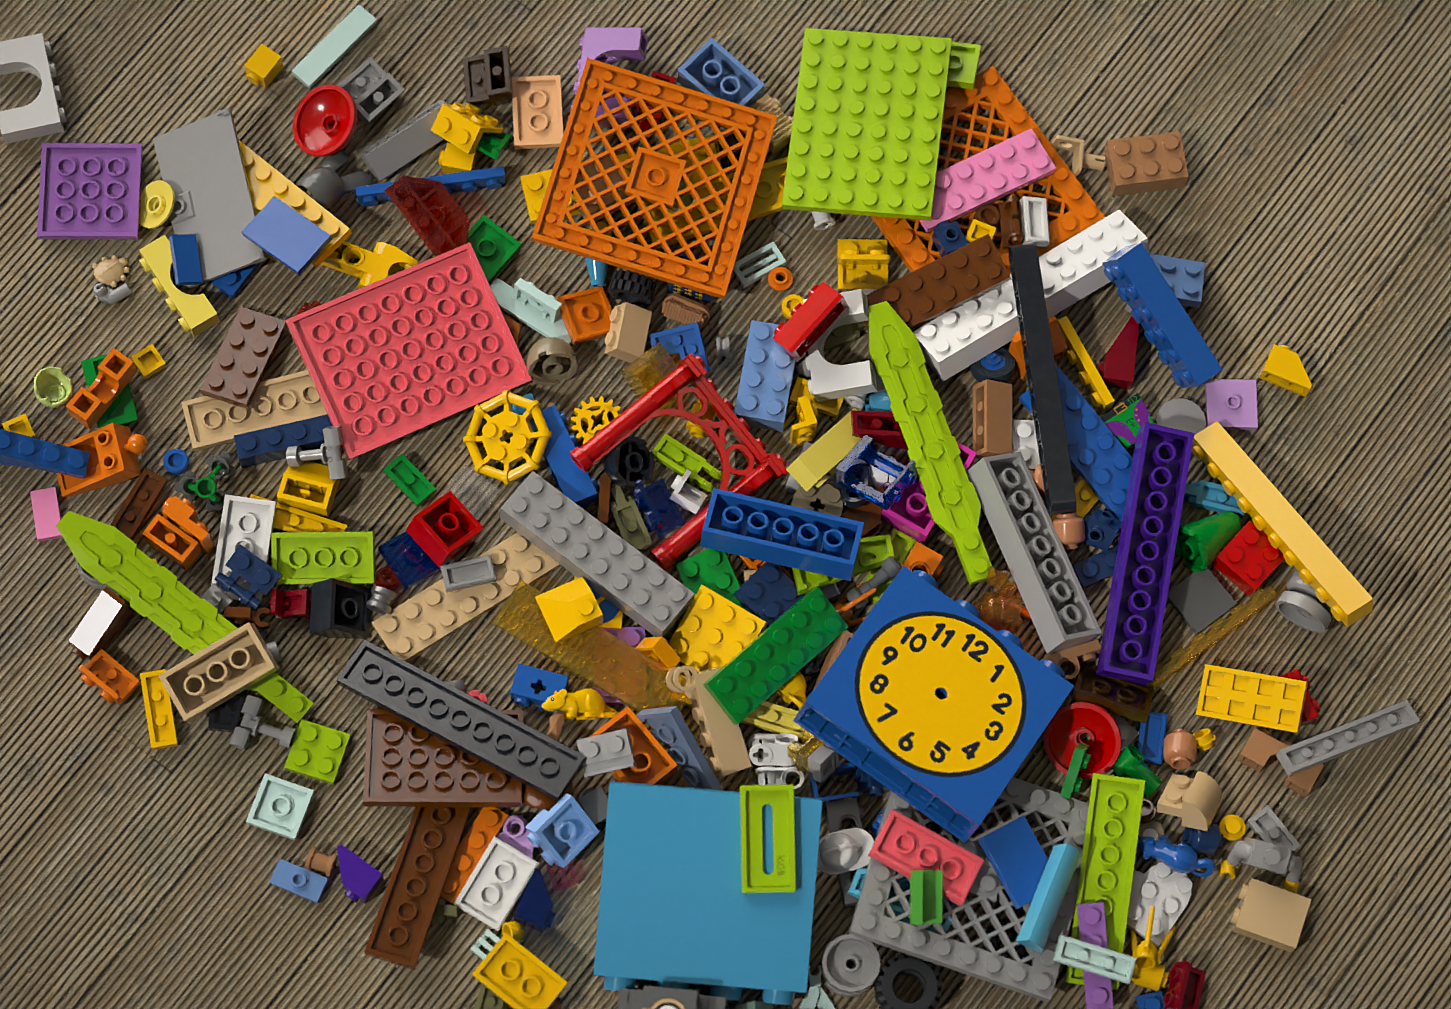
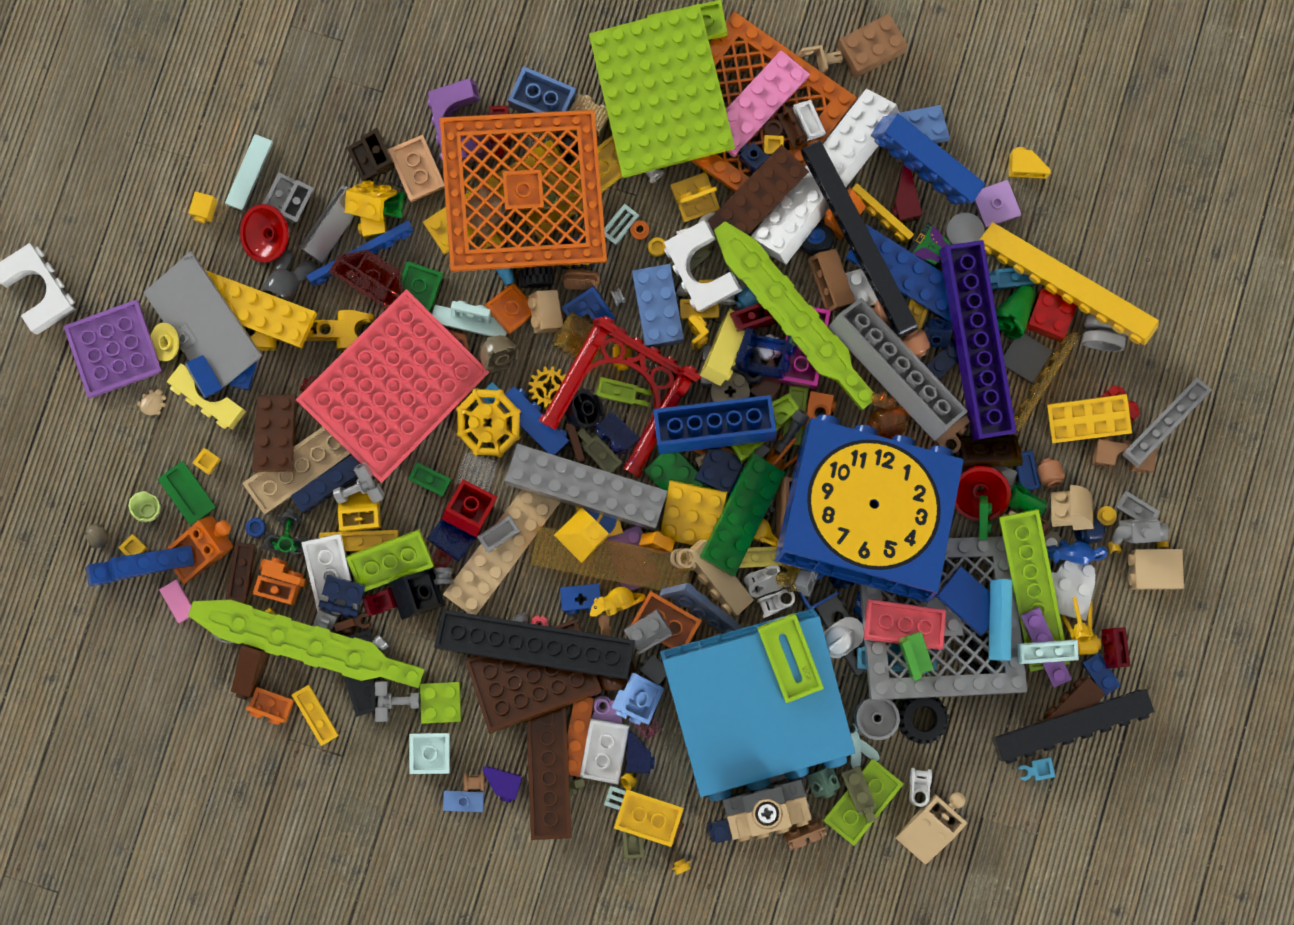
camera: 15 degrees left, 10 degrees up
(111, 295) = (159, 421): light grey arm -> none
(113, 376) = (185, 485): orange arch -> none
(219, 672) = (348, 676): tan brick -> none
(286, 235) = (270, 334): tile -> none
(686, 495) = (633, 417): white bracket -> none
(809, 320) = (675, 258): slope -> none
(1204, 739) = (1064, 458): yellow plate -> none

